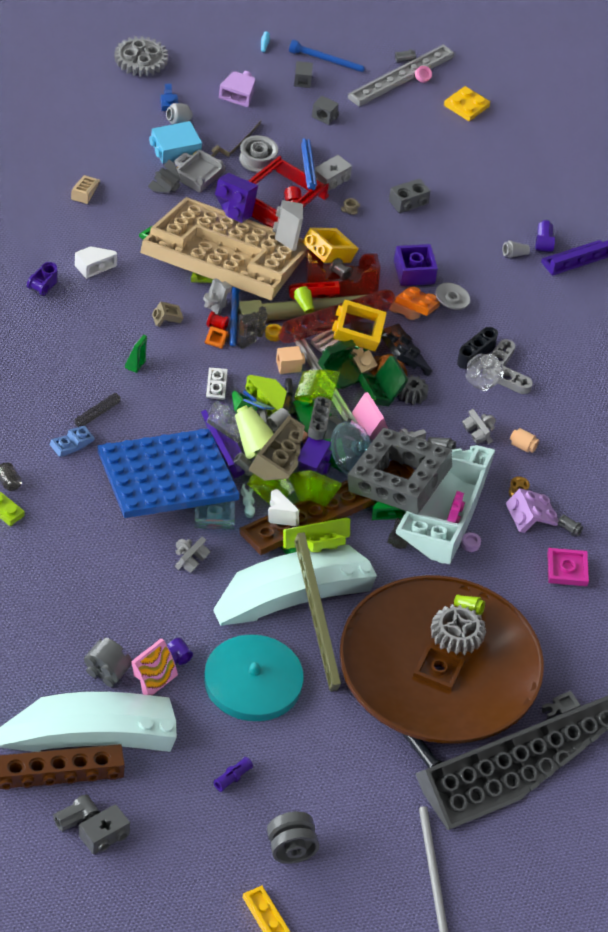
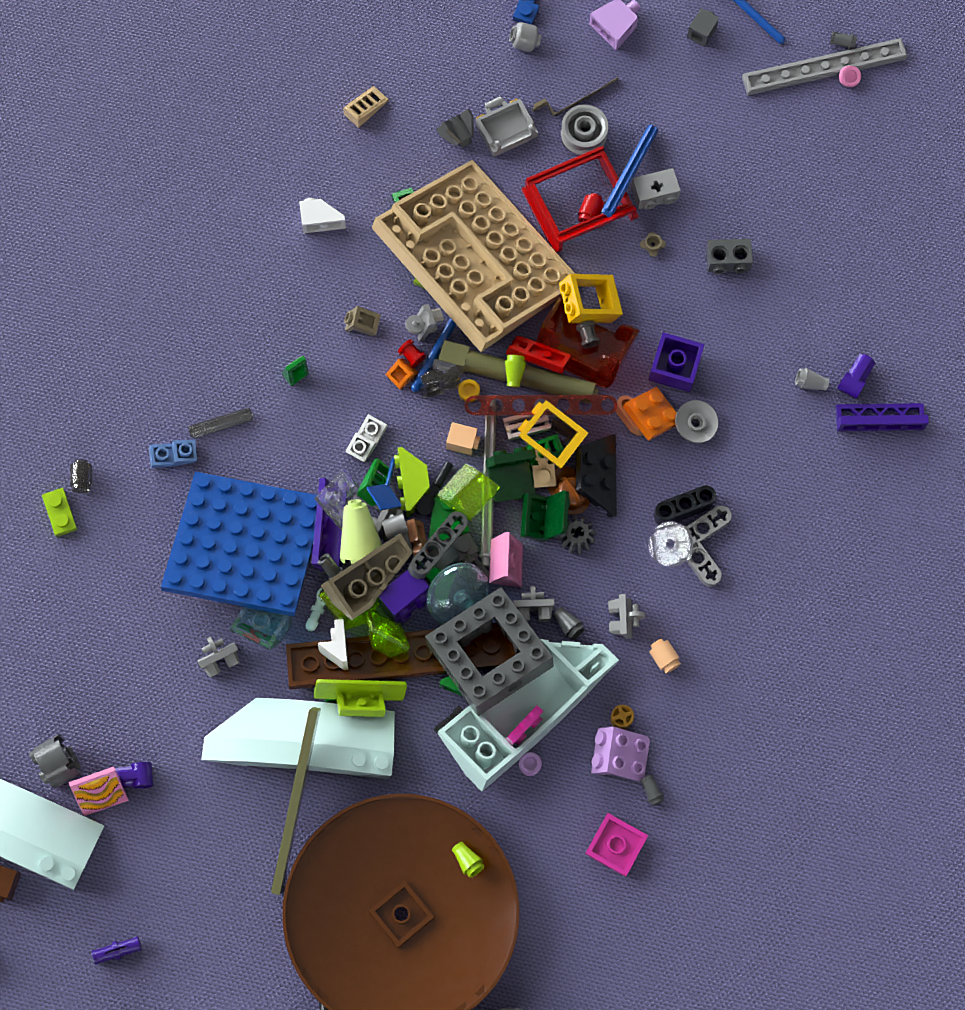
camera: 30 degrees right, 25 degrees up
(44, 278) = (250, 222): dark purple piece -> none
(175, 140) = (498, 76): medium azure brick -> none
(236, 196) = (520, 188): dark purple slope -> none
(253, 677) = (202, 839): teal container -> none
(289, 223) = (555, 253): light grey slope -> none
(325, 110) = (699, 91): dark grey brick -> none
(453, 627) = (446, 890): light grey gear -> none
(467, 103) = (879, 138): yellow plate -> none

